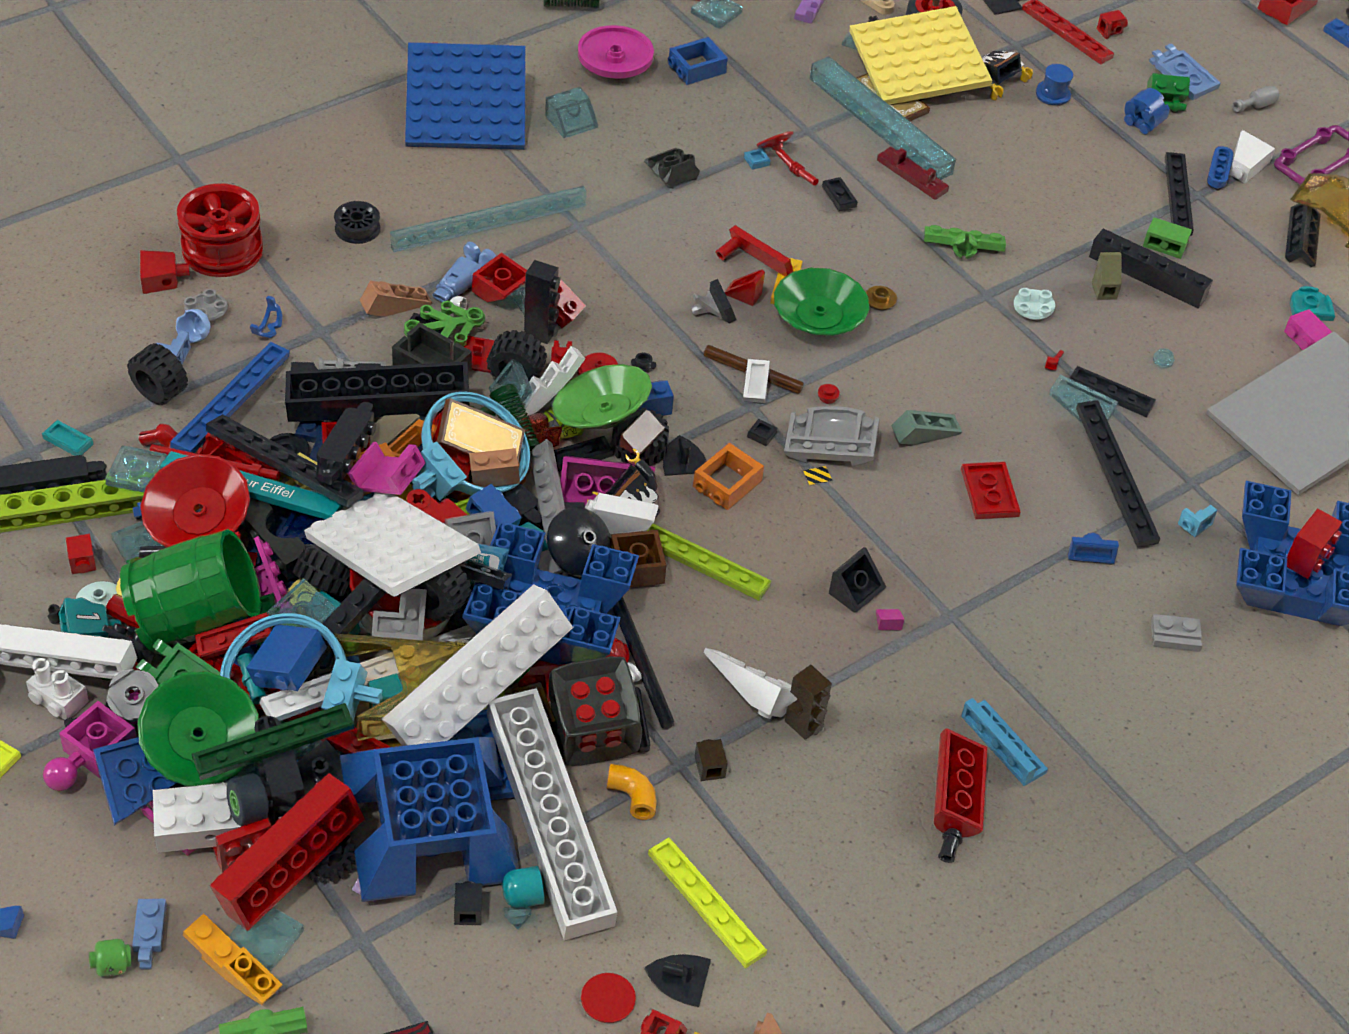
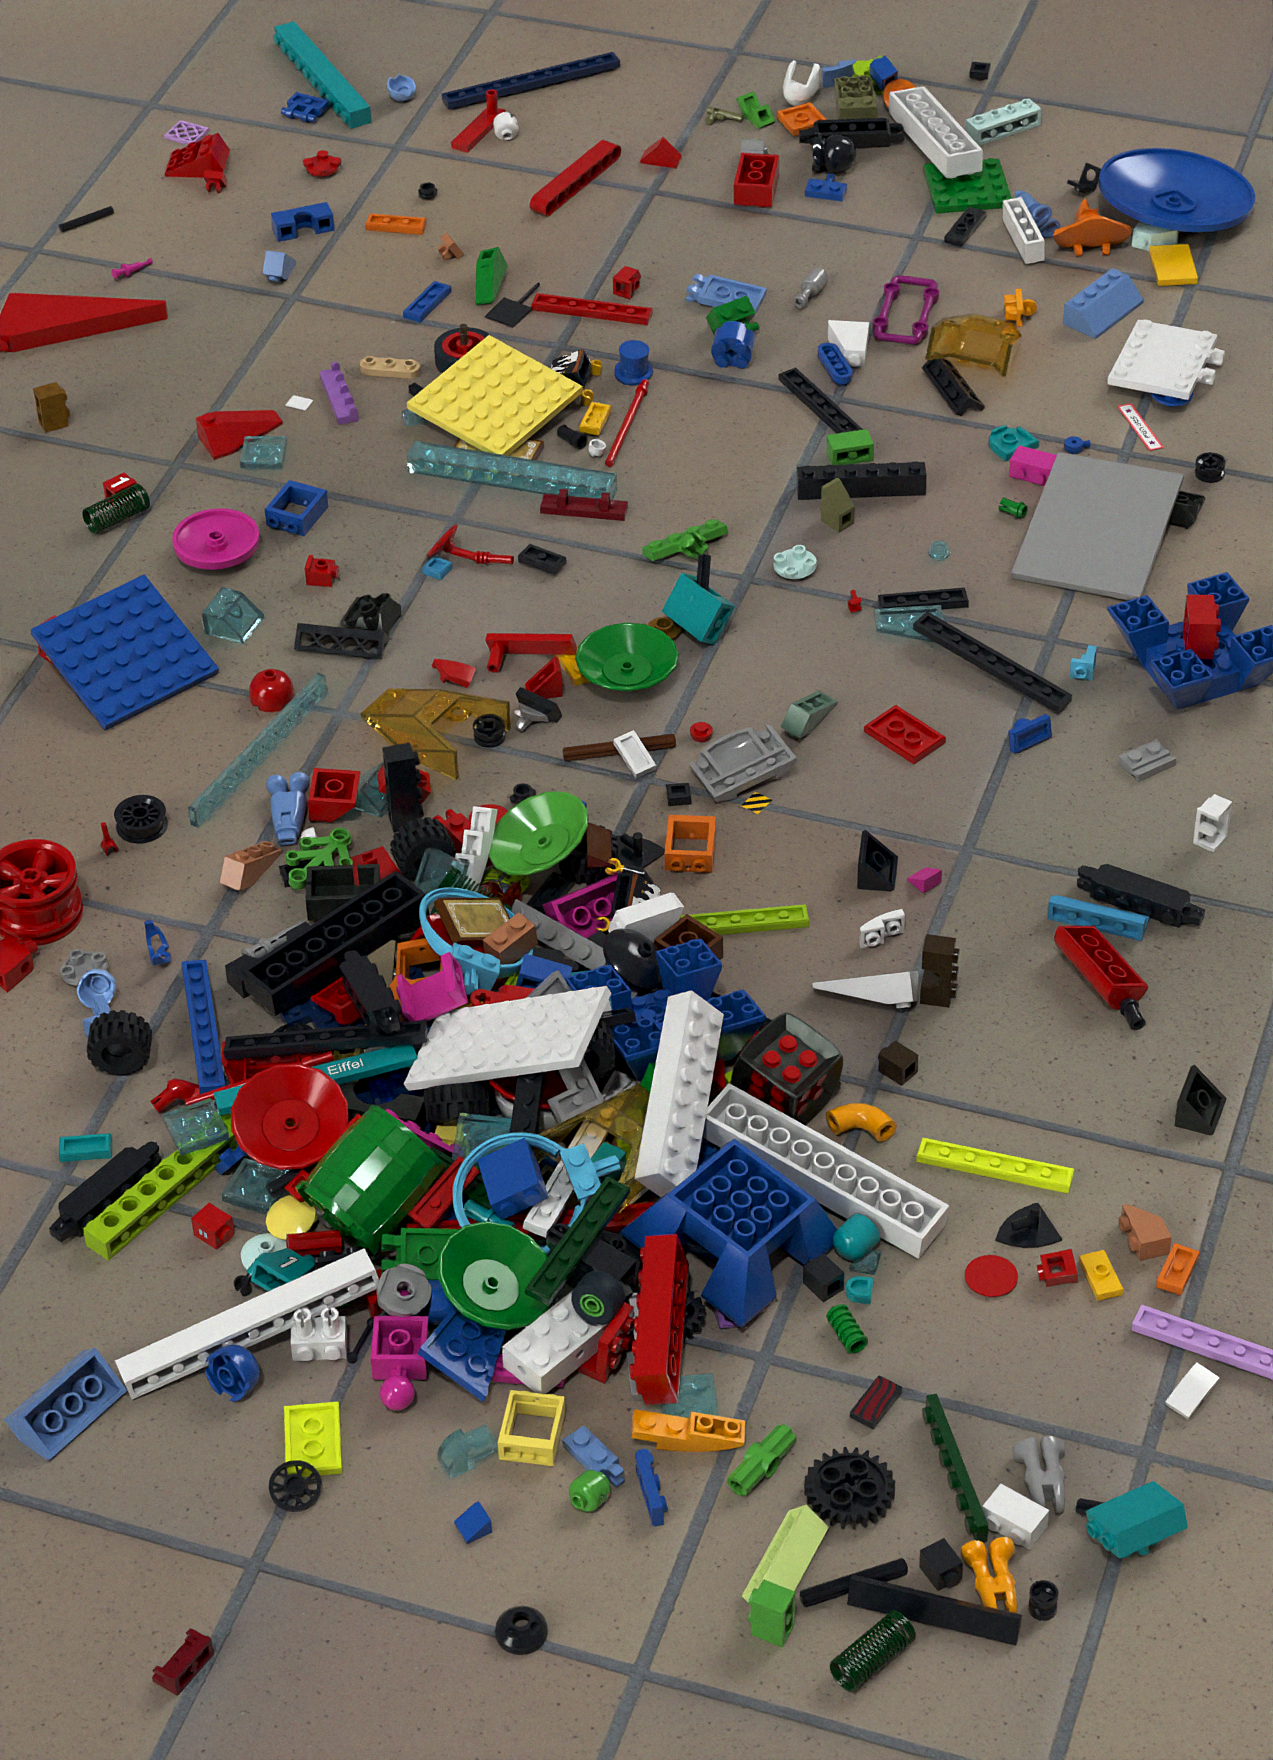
camera: 30 degrees left, 5 degrees down
(59, 856) = (461, 1450): none -> clear light blue brick
(93, 872) = (526, 1448): none -> light yellow window
(157, 986) = (650, 1486): none -> blue hinge
(317, 225) = (107, 842): none -> red hand
(443, 961) = (847, 1328): none -> green piece
(491, 934) = (859, 1289): none -> teal tile
(543, 179) = (271, 690): none -> red cylinder
(624, 250) = (409, 715): none -> clear yellow windscreen
(636, 169) = (343, 634): none -> black fence
(667, 115) = (320, 572): none -> red brick
(667, 300) = (489, 730): none -> black wheel
(689, 242) = (454, 671): none -> red slope
(800, 636) = (875, 930): none -> white slope
(916, 293) = (697, 605): none -> teal piece
(928, 964) = (1199, 1104): none -> pearl dark grey slope
(956, 118) = (575, 438): none -> black pin
(965, 129) = (596, 447): none -> white hinge
(986, 111) = (595, 418): none -> yellow plate
(1043, 110) = (641, 391): none -> red bar
(1056, 745) = (1139, 894): none -> black hinge
(1175, 721) = (1212, 823): none -> white window
(1262, 360) = (1012, 507): none -> green pin

